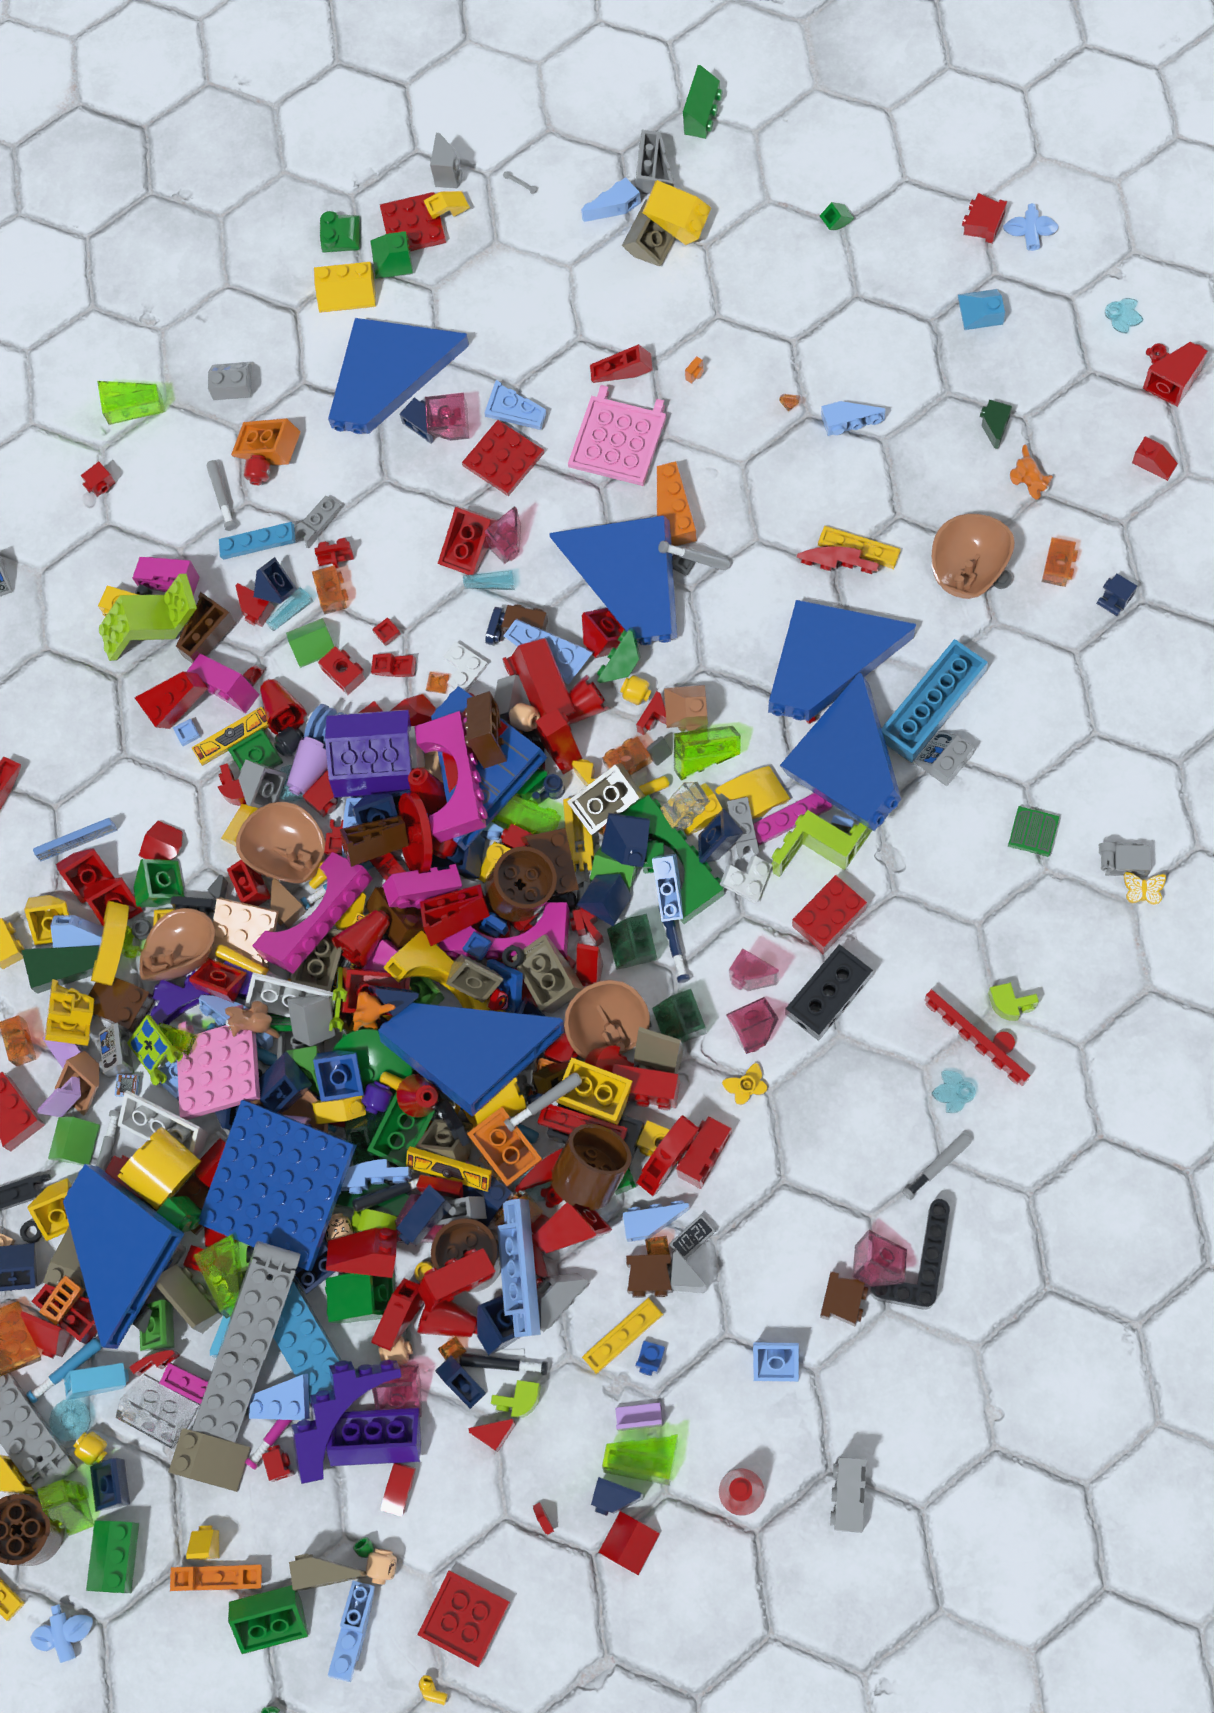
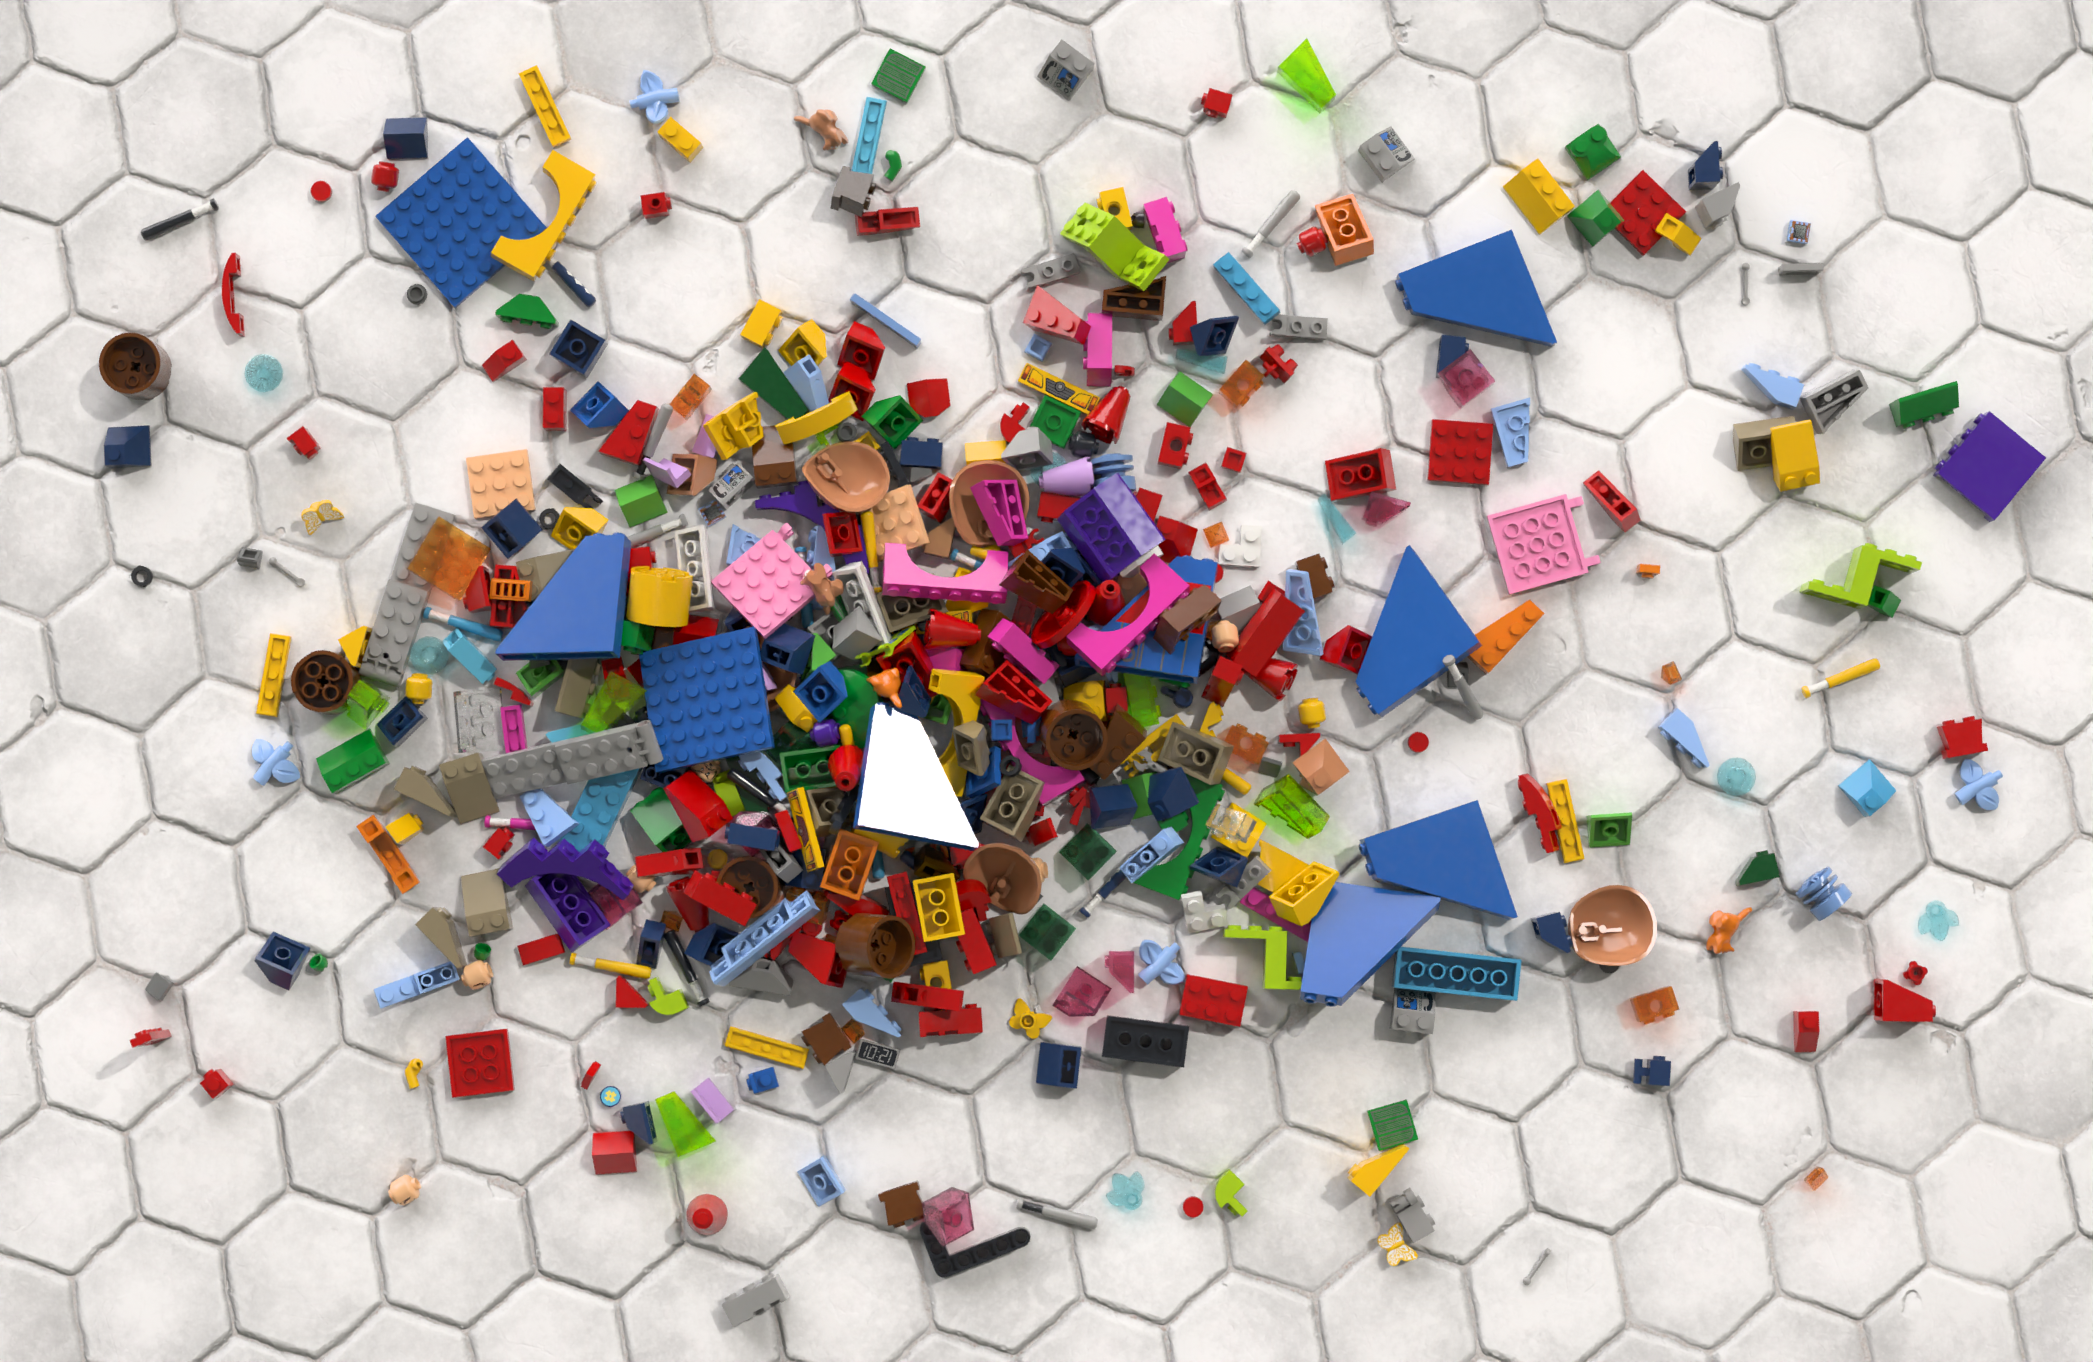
camera: 45 degrees right, 15 degrees up
(27, 1091) = (654, 438): none -> light grey piece
(133, 684) = (1051, 271): none -> light grey plate
(152, 1047) = (752, 518): lime flag -> none
(175, 1506) = (421, 788): none -> dark tan slope
(179, 1039) = (770, 529): clear neon green slope -> none
(202, 875) = (921, 453): none -> dark blue brick
(267, 1619) = (384, 913): green slope -> none
(293, 834) = (1002, 510): none -> dark pink wedge
(323, 1514) = (485, 903): none -> dark tan slope
(412, 156) = (1706, 170): none -> dark blue slope
(458, 1430) = (613, 966): none -> yellow piece
(493, 631) = (1287, 556): dark blue plate -> none
(498, 1000) = (966, 778): red tile -> none
(507, 124) = (1798, 232): none -> tile
(535, 135) = (1801, 268): none -> light grey tile
(546, 1099) = (911, 878): light grey piece -> none
(574, 1512) = (610, 1096): none -> tile
(590, 845) = (1151, 765): none -> light grey bar
(621, 659) = (1330, 685): green slope -> none
(717, 623) = (1418, 742): none -> red tile
(769, 940) = (1160, 963): none -> light blue plant
(780, 85) = (1989, 465): none -> dark purple panel
(785, 780) = (1304, 894): none -> yellow slope
(803, 1080) = (1058, 1065): none -> dark blue slope
(805, 218) = (1861, 576): none -> lime bracket
(879, 270) = (1847, 675): none -> yellow piece
(887, 514) = (1609, 829): none -> bright green slope
(907, 398) = (1736, 776): none -> clear light blue wheel
(946, 604) = (1550, 930): none -> dark blue slope
(982, 1043) = (1179, 1191): red plate -> none
(1050, 380) = (1823, 893): none -> medium blue wheel
(1066, 869) = (1373, 1171): none -> yellow slope

